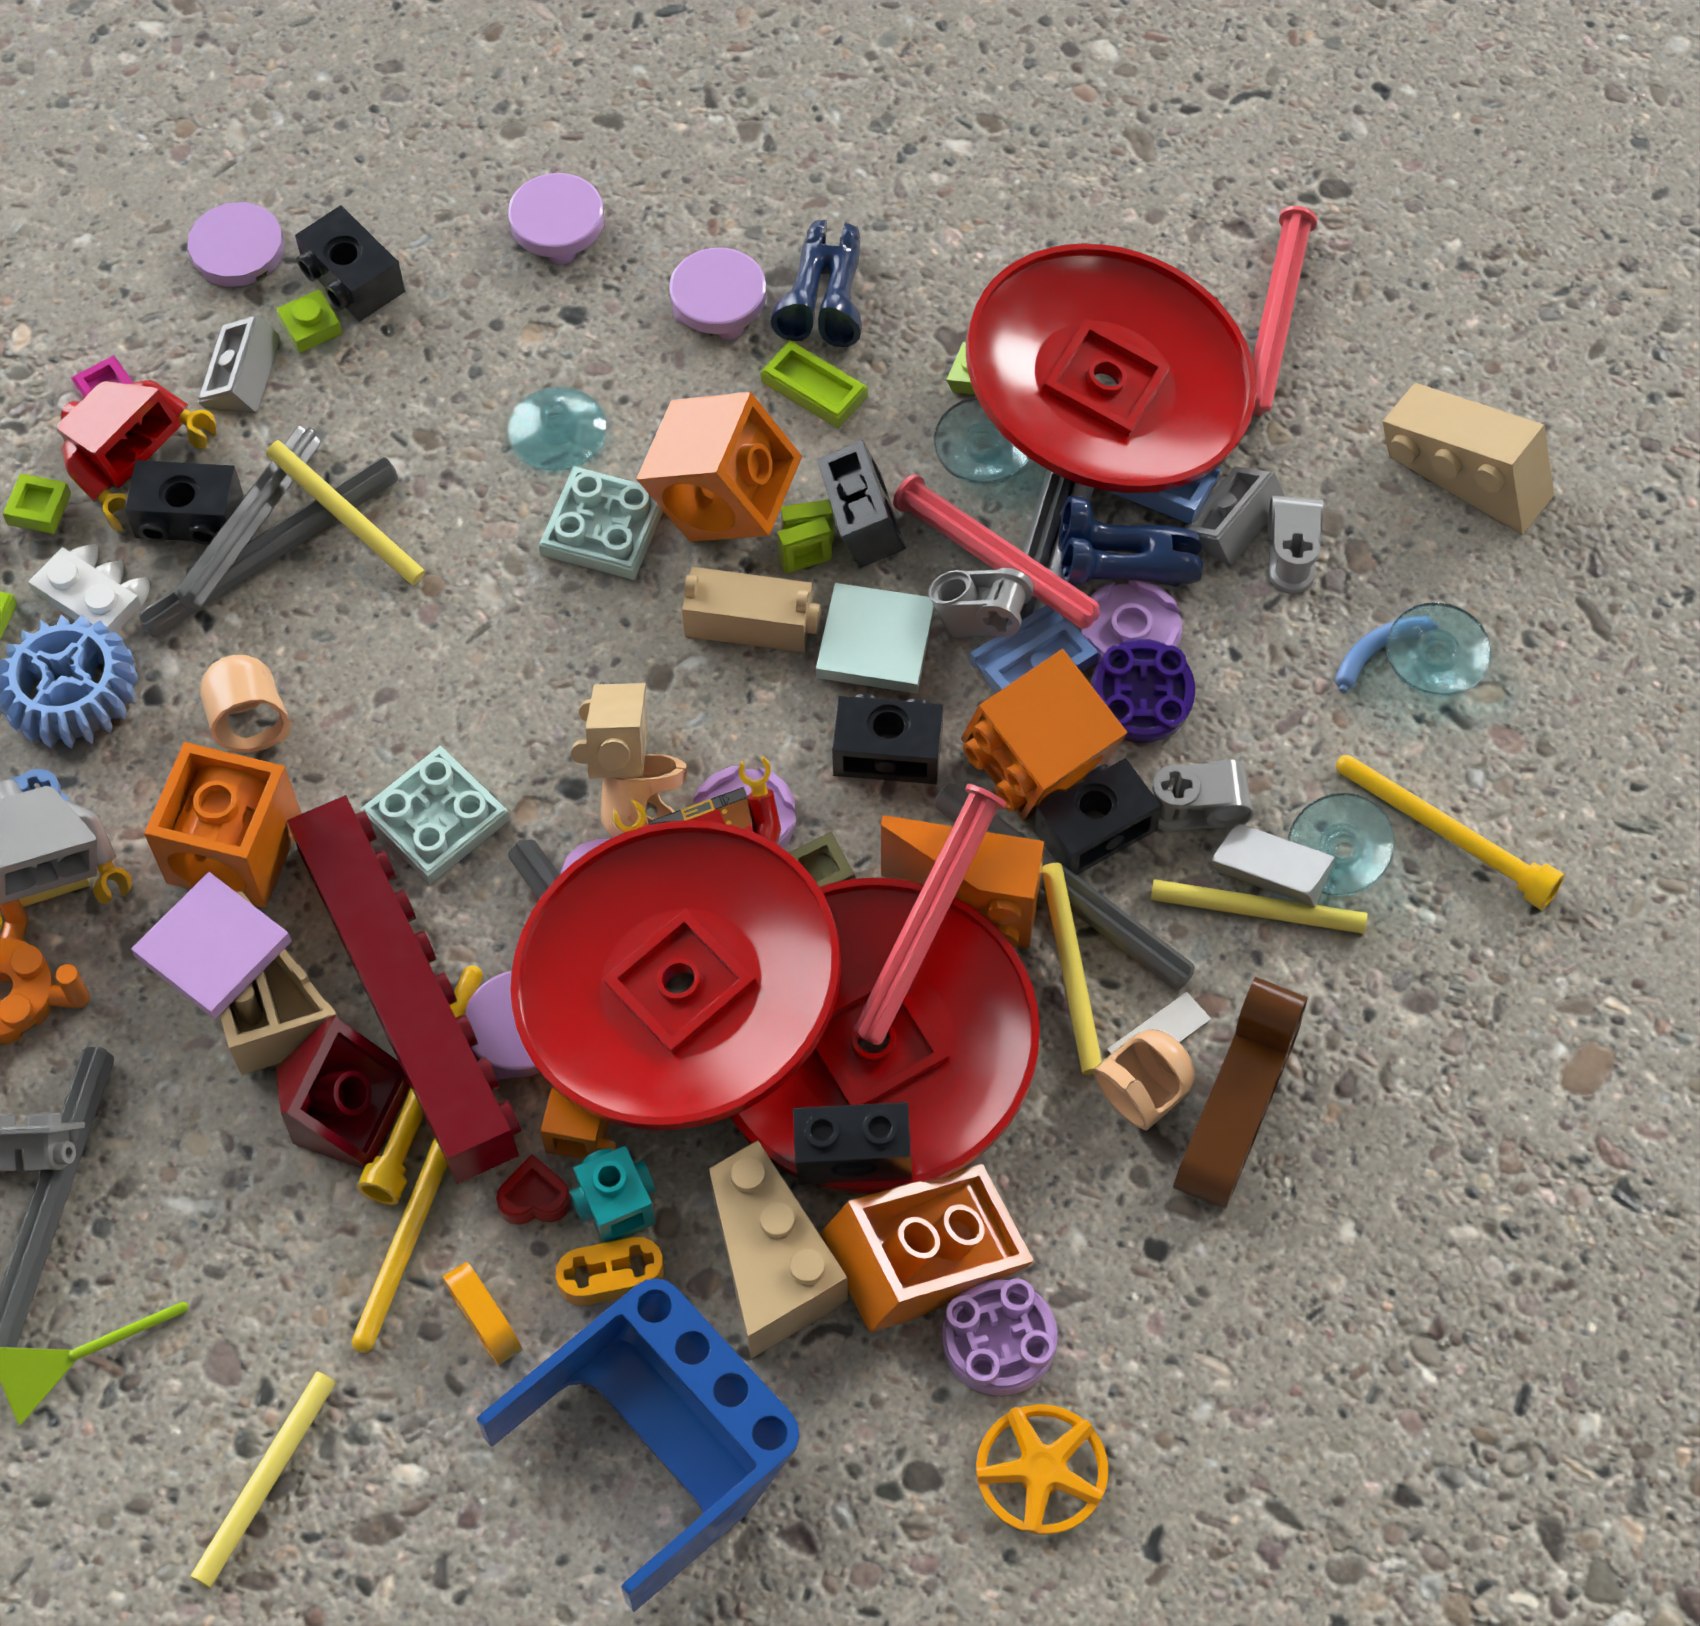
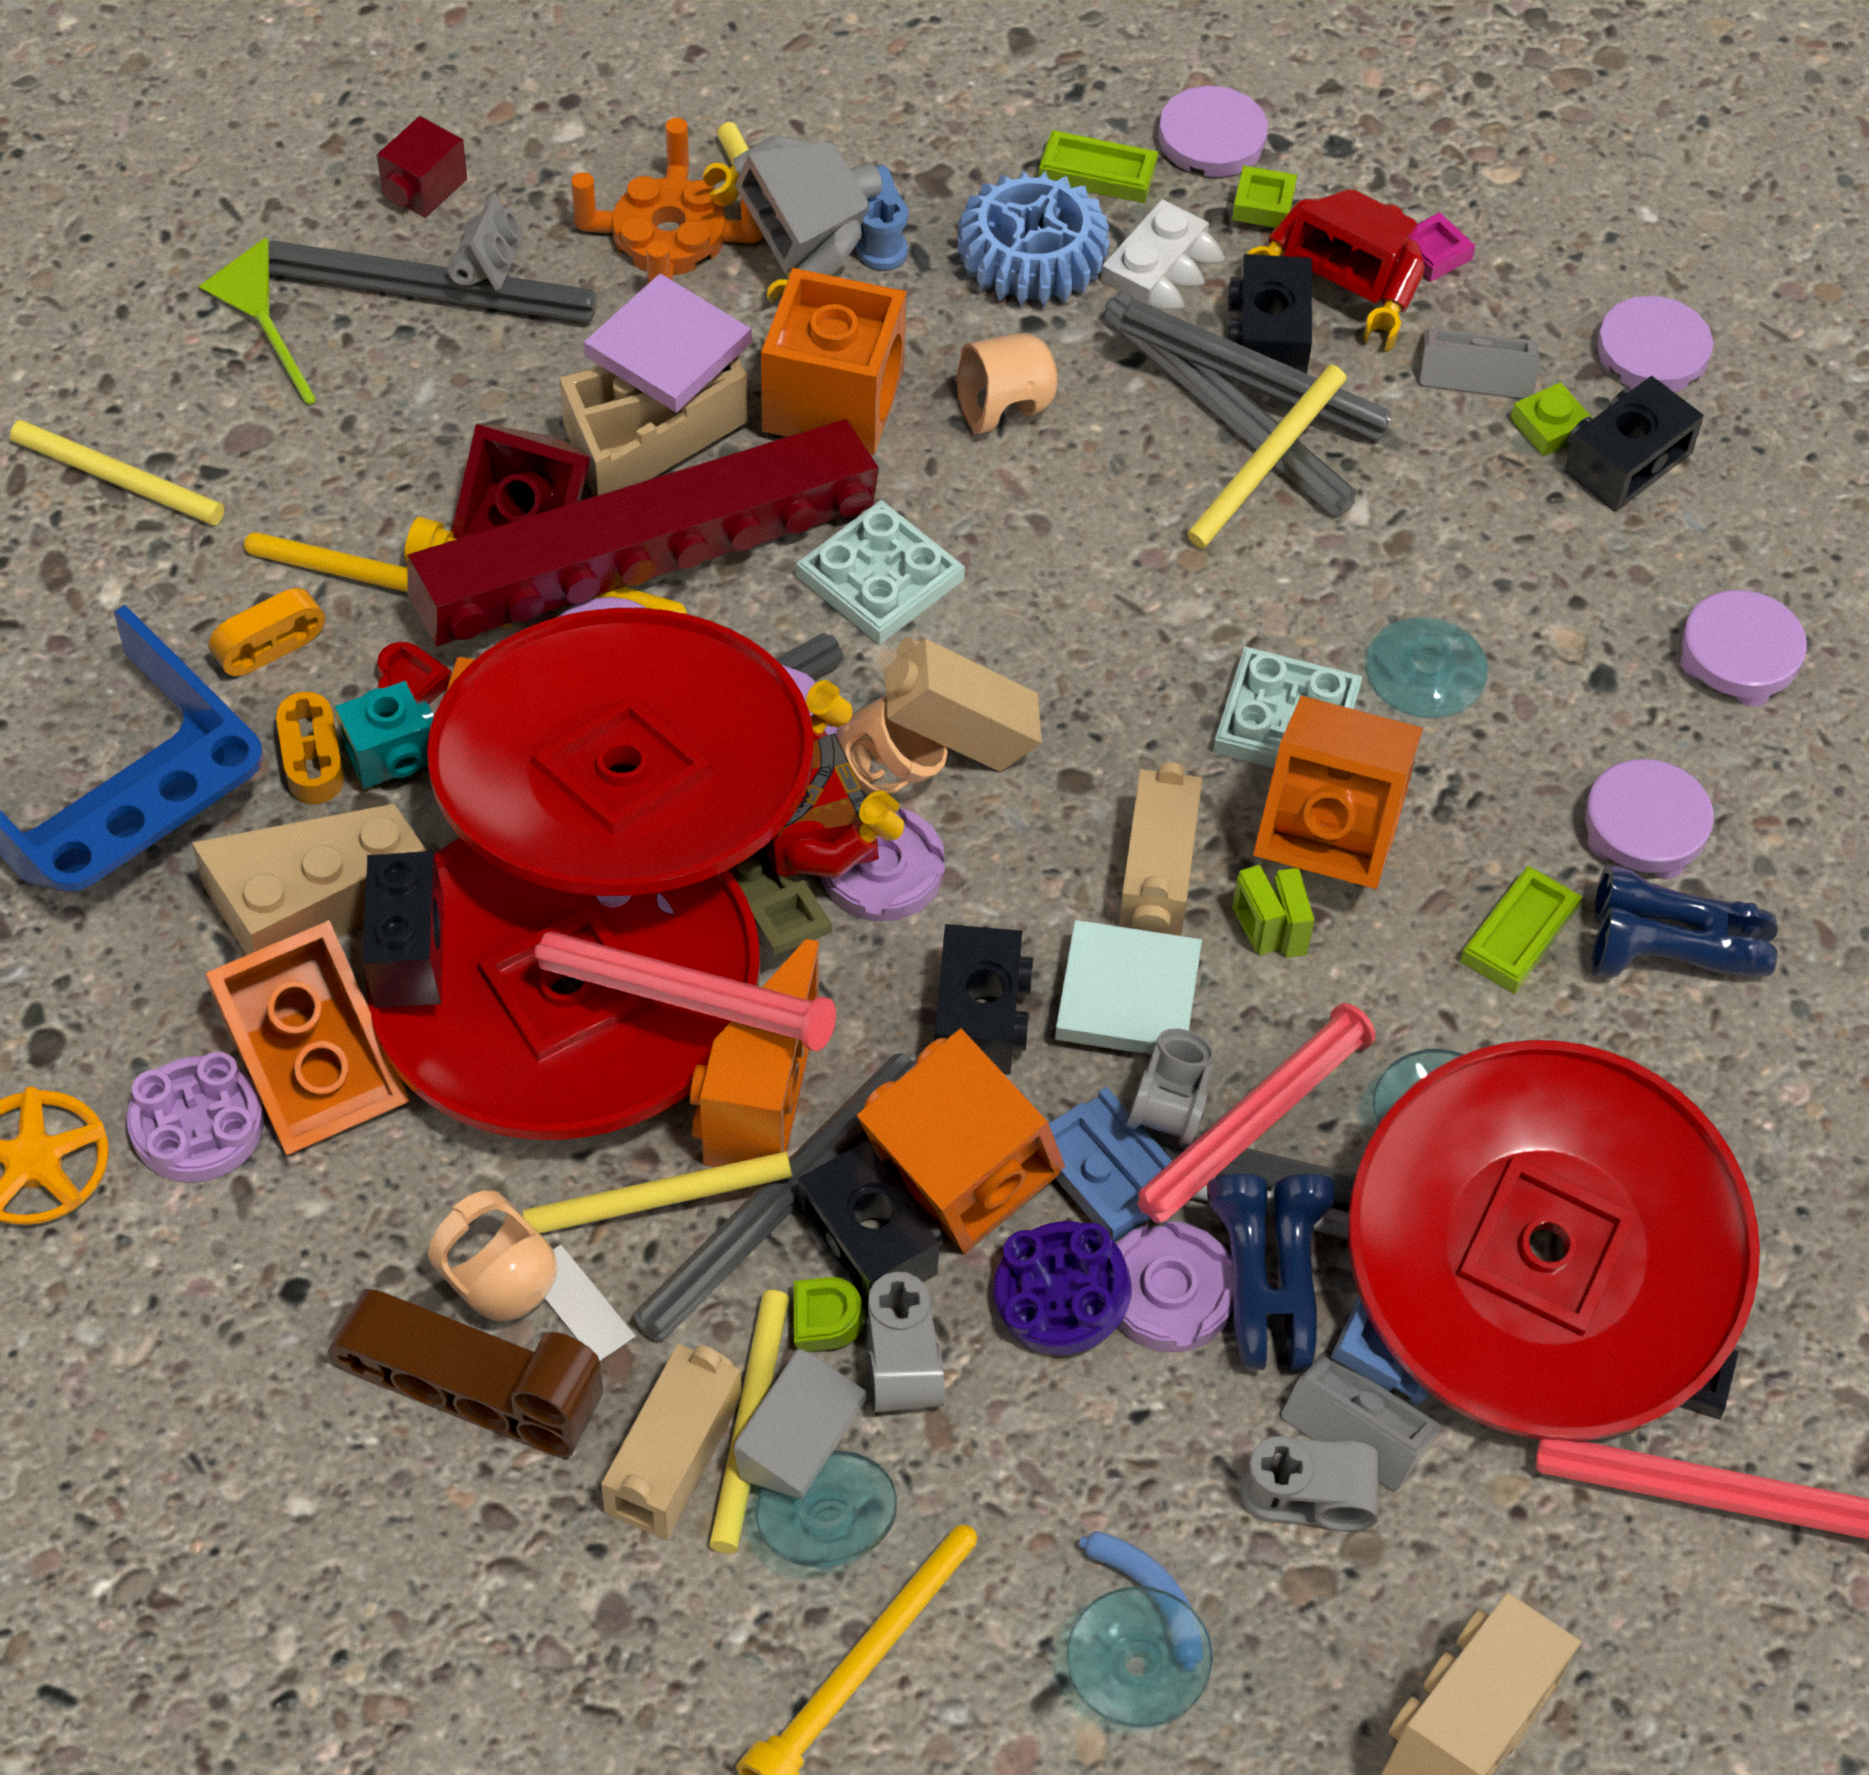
camera: 85 degrees right, 5 degrees down
(861, 504) = (1315, 959): black brick -> none
(1167, 852) = (826, 1313): none -> lime tile
(1287, 950) = (672, 1440): none -> tan brick

